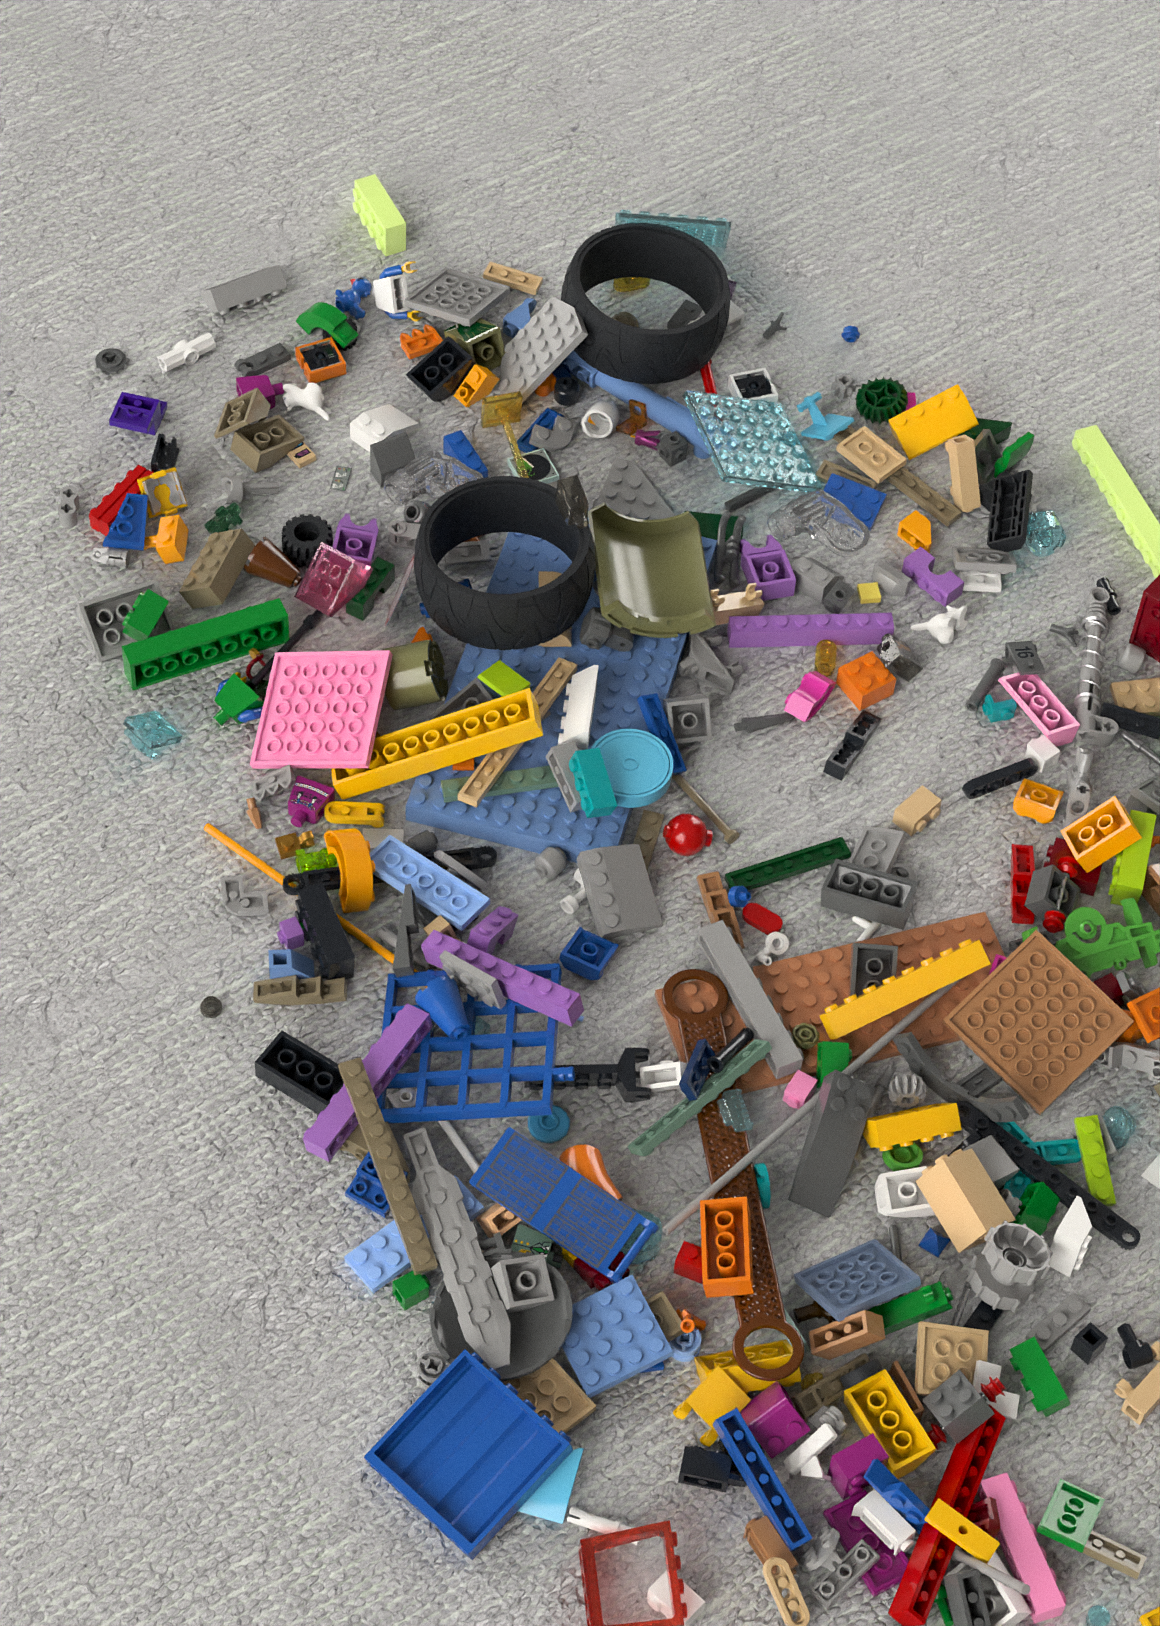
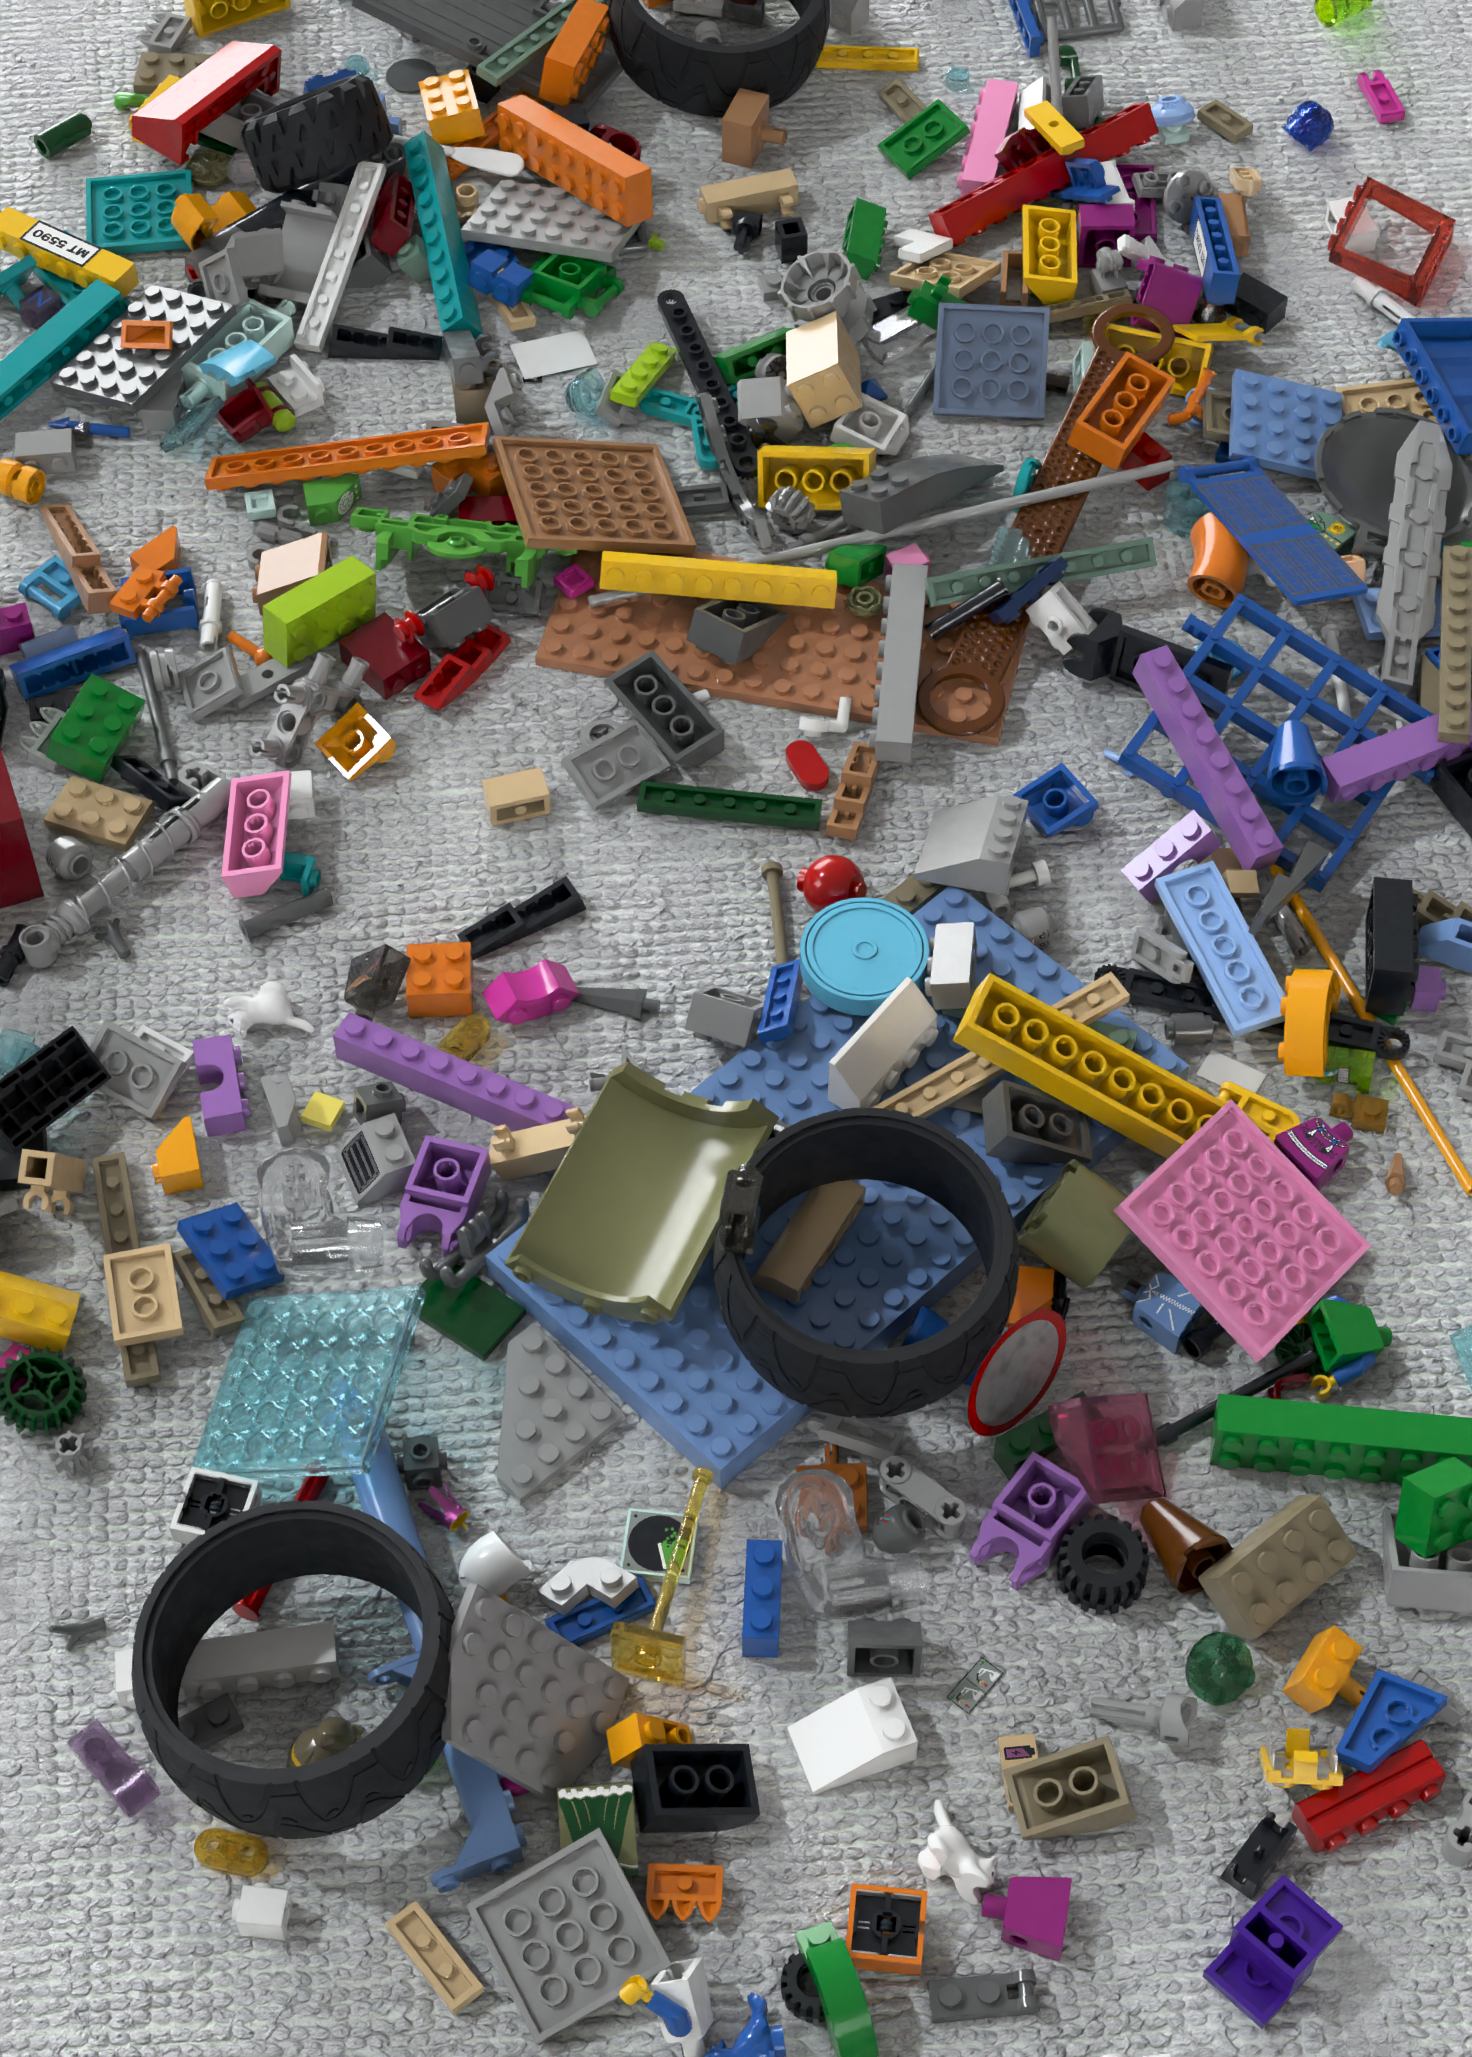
camera: 145 degrees left, 0 degrees up
(242, 412) = (1103, 1831): dark tan slope -> none
(273, 782) = (1355, 1190): light grey plate -> none
(473, 980) = (1251, 758): light grey plate -> none
(503, 679) = (971, 1117): lime slope -> none
(522, 1282) = (1364, 481): light grey slope -> none
(592, 783) = (942, 922): teal brick -> none
(635, 421) = (447, 1546): clear orange bracket -> none
(707, 231) = (126, 1827): clear light blue plate -> none
(738, 896) = (822, 784): blue tile -> none
(822, 427) = (160, 1387): medium azure plate -> none
(847, 1335) = (1032, 293): medium nougat brick -> none
(861, 1373) = (1046, 268): black tyre -> none
(960, 1407) = (971, 224): dark grey brick -> none
(1000, 778) = (342, 789): black beam -> none
(1025, 657) = (204, 917): dark grey door -> none
(1071, 1239) = (741, 303): white slope -> none
(1101, 834) = (348, 614): light orange brick -> none

